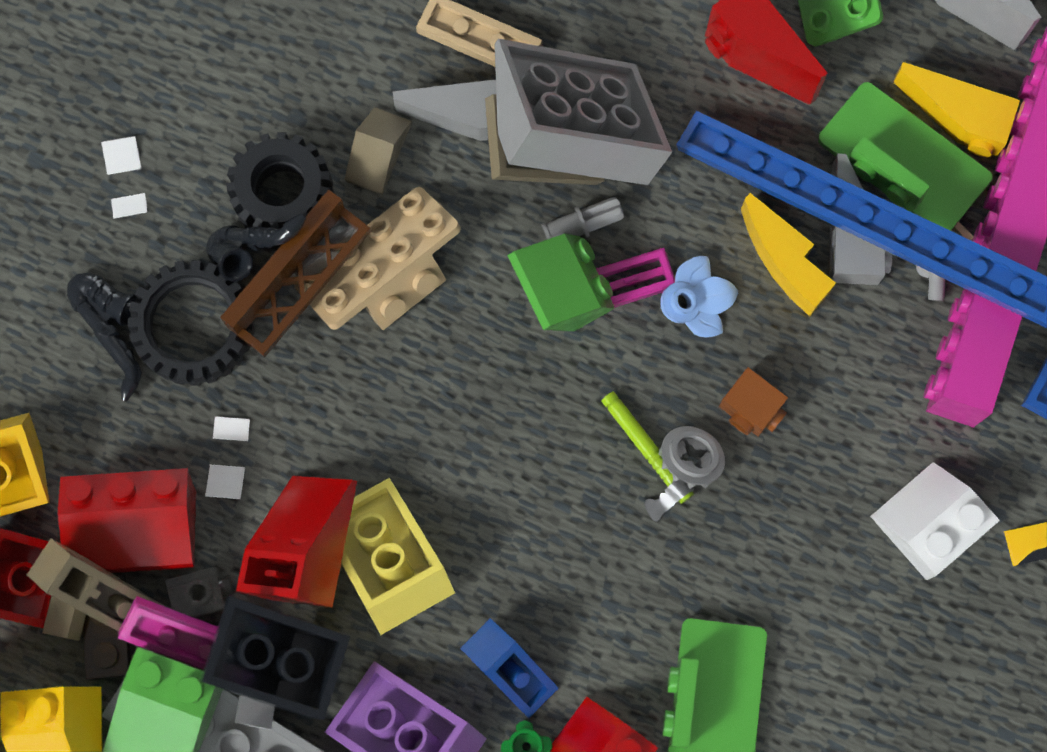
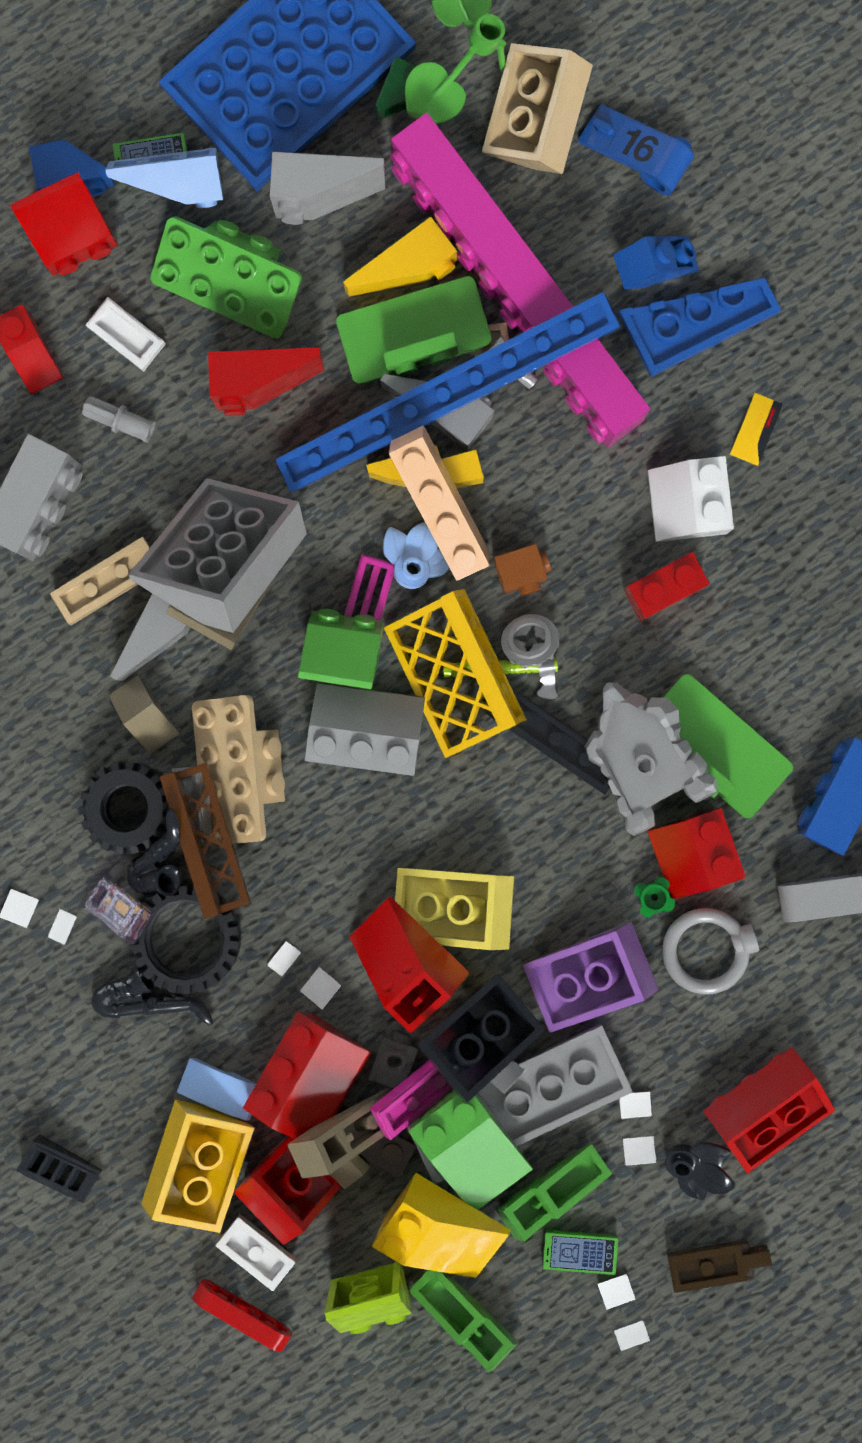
camera: 55 degrees left, 10 degrees up
(64, 443) = (216, 1088): none -> light blue slope
(178, 241) = (118, 910): none -> clear purple tile
(501, 356) = (365, 729): none -> light grey slope
(509, 667) = (592, 873): blue slope -> none
(586, 219) = (302, 600): light grey axle -> none
(614, 546) = (557, 742): none -> black tile
(636, 428) = (483, 666): none -> yellow fence
(657, 638) = (645, 755): none -> light grey shield
(762, 280) = (439, 503): none -> light nougat brick
(835, 552) = (666, 586): none -> red brick

